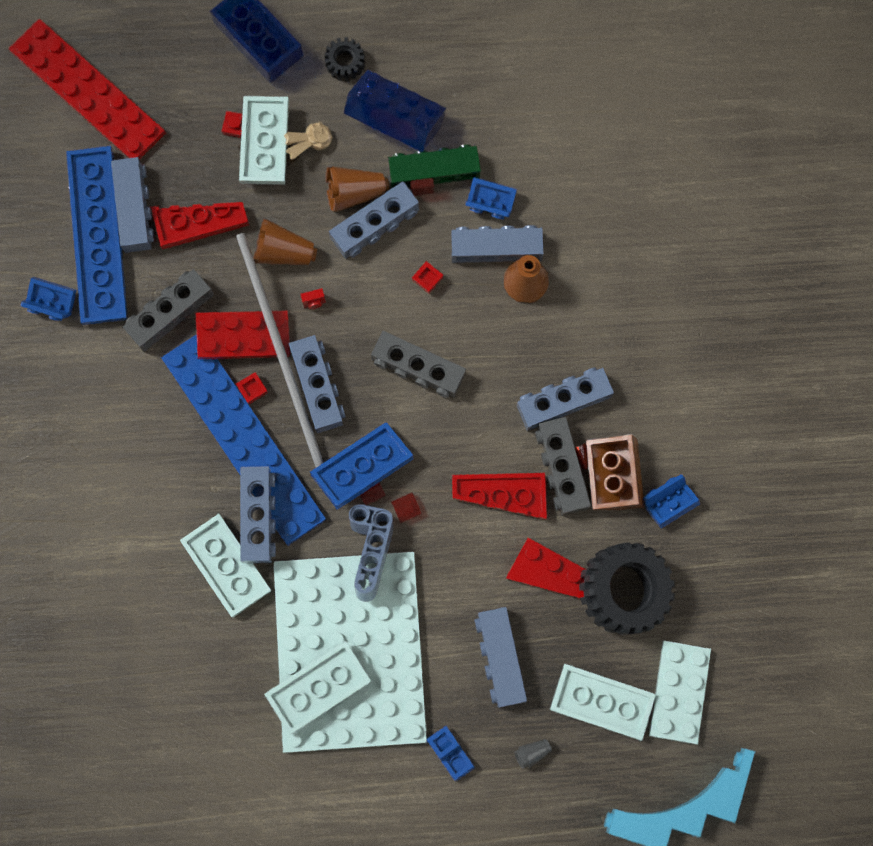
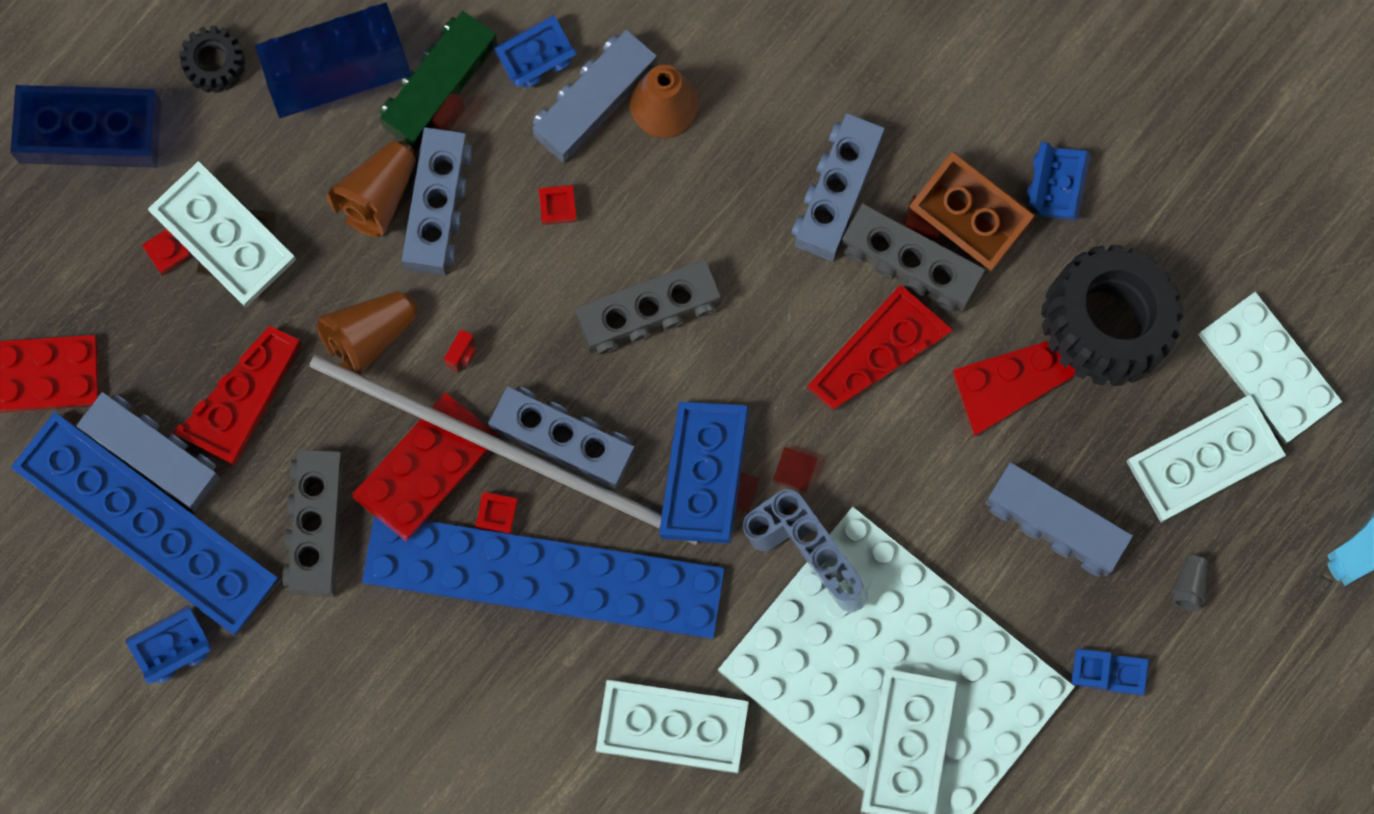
camera: 50 degrees left, 0 degrees up
(249, 479) = (686, 681): sand blue brick -> none
(316, 136) = (273, 175): tan piece -> none

